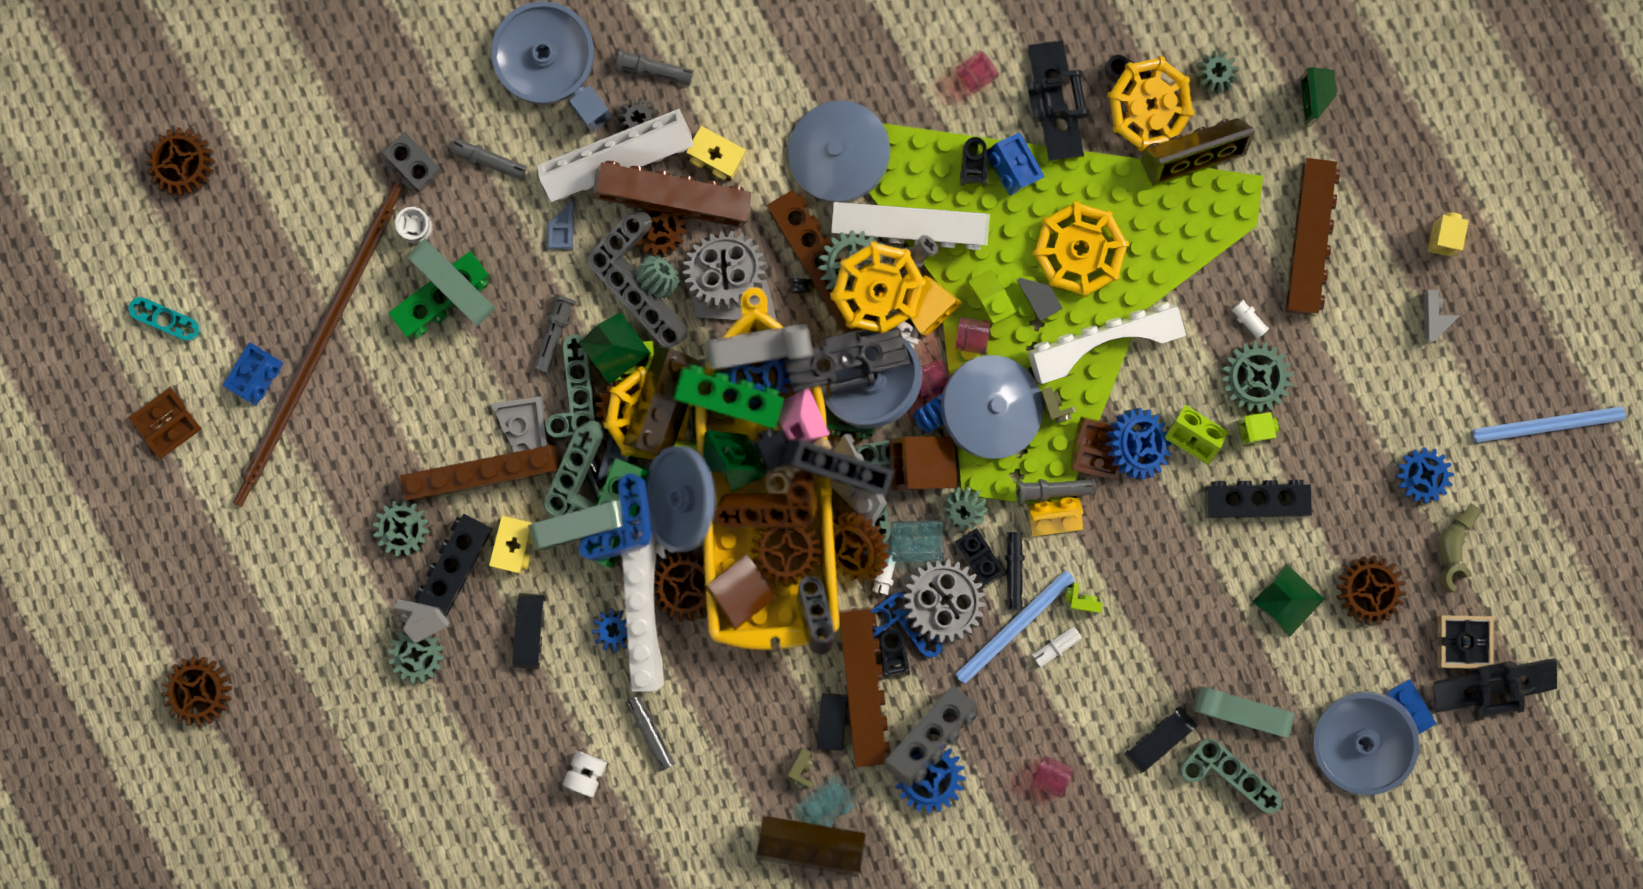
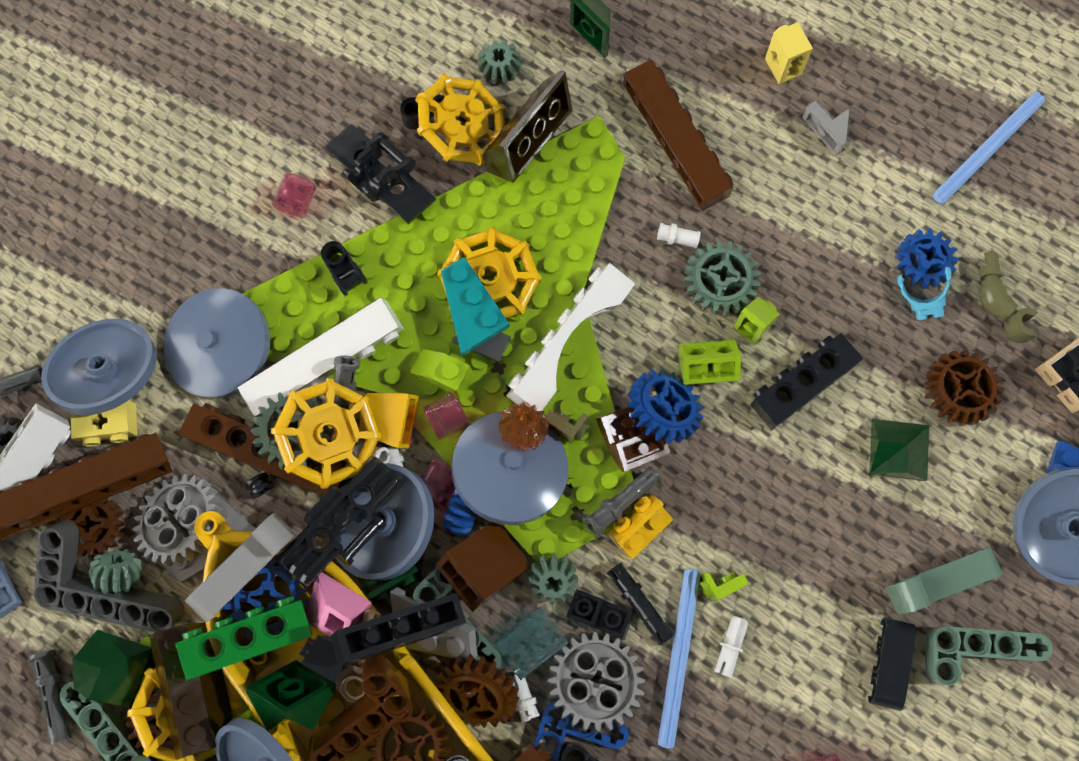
camera: 30 degrees left, 10 degrees down
(741, 108) = (99, 366): none -> sand blue dish
(1014, 163) = (379, 245): blue bracket -> none
(1022, 386) = (523, 426): none -> clear orange gear
(1050, 265) = (471, 307): none -> teal wing
(1394, 510) = (925, 307): none -> medium azure helmet

